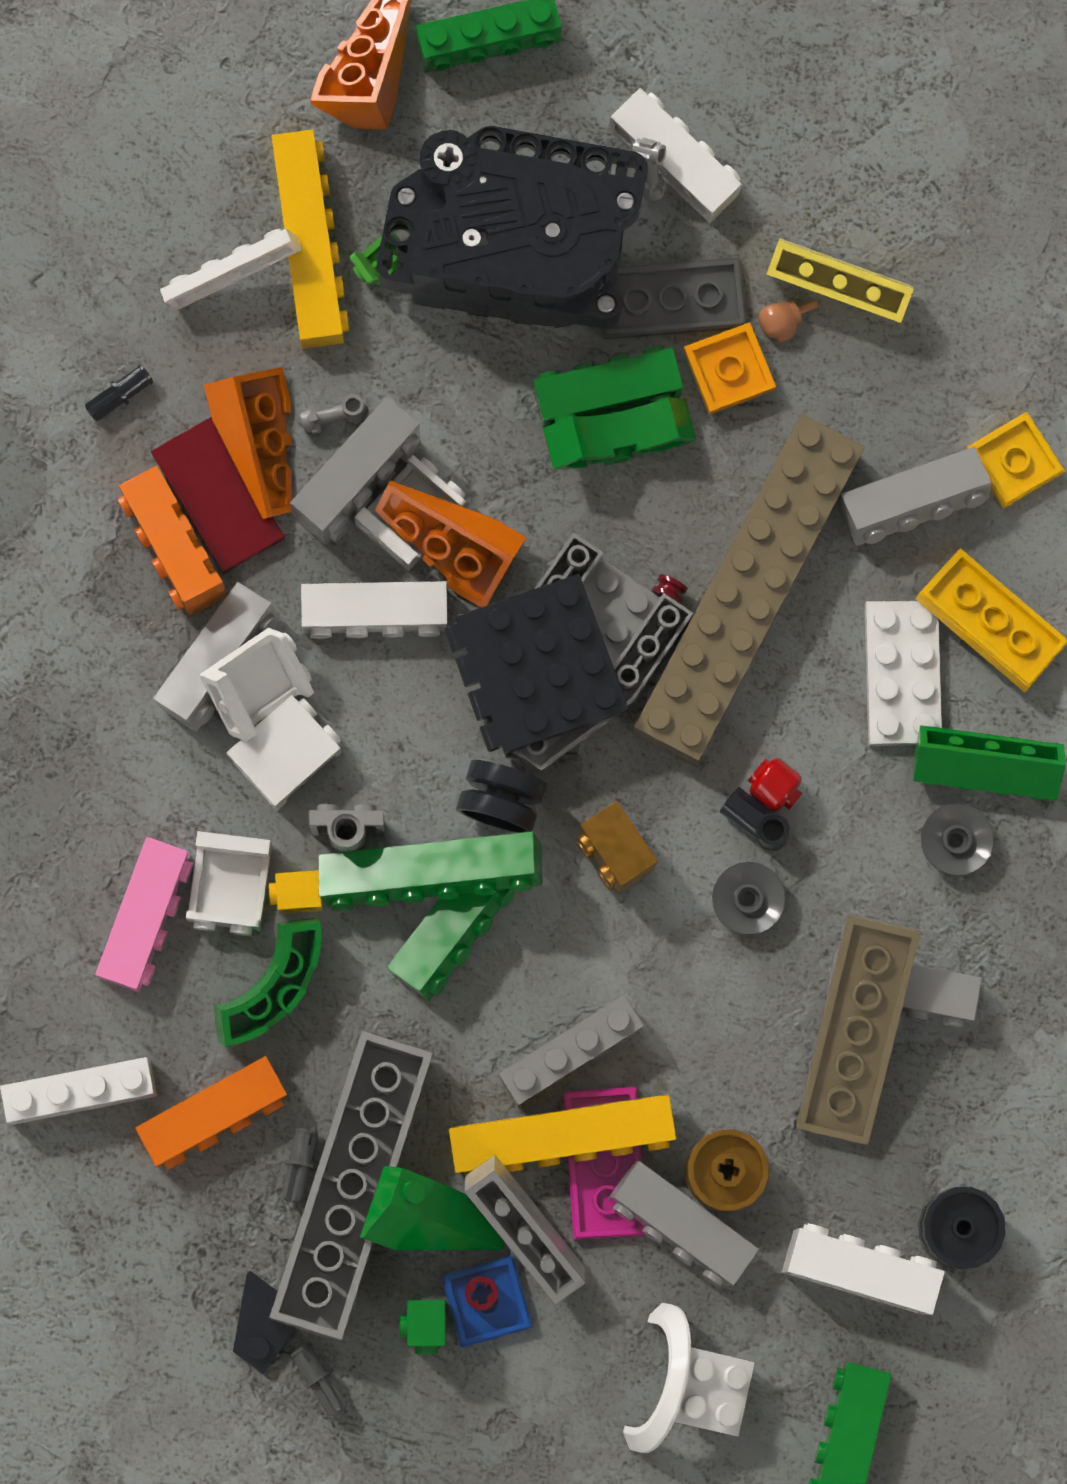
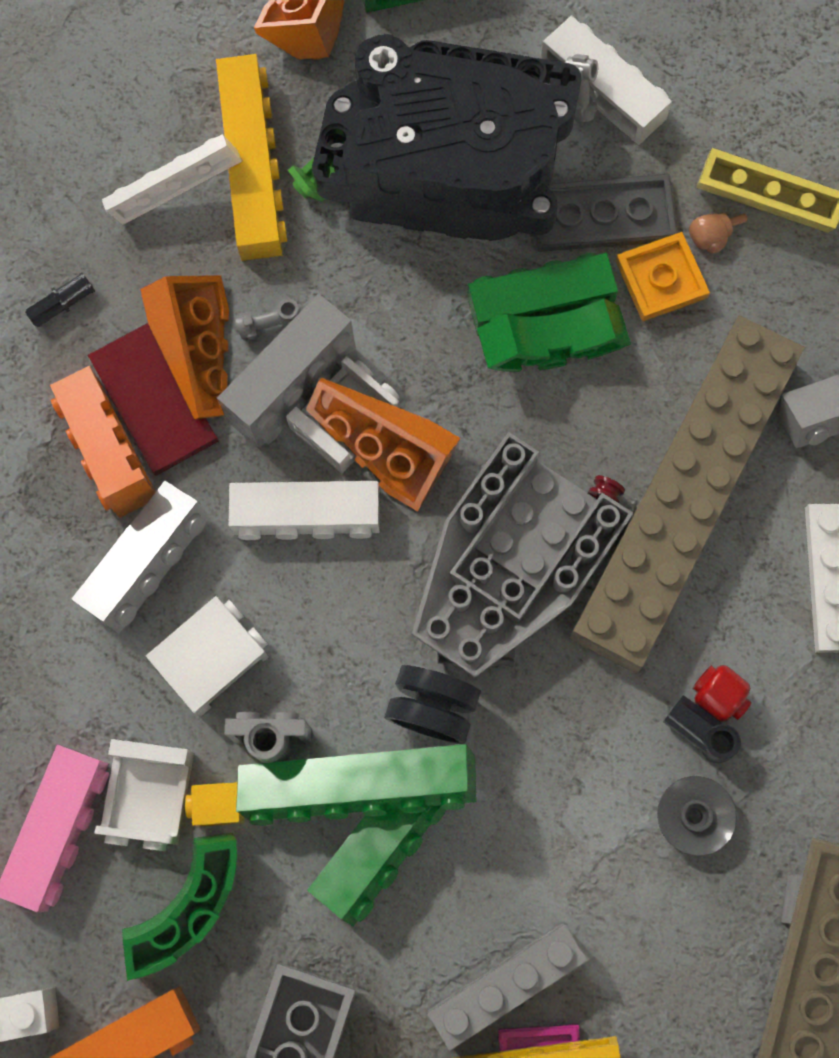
camera: 10 degrees right, 5 degrees down
(256, 681) = (178, 581): white panel -> none
(536, 666) = (470, 567): black hinge -> none
(616, 848) = (555, 760): pearl gold brick -> none

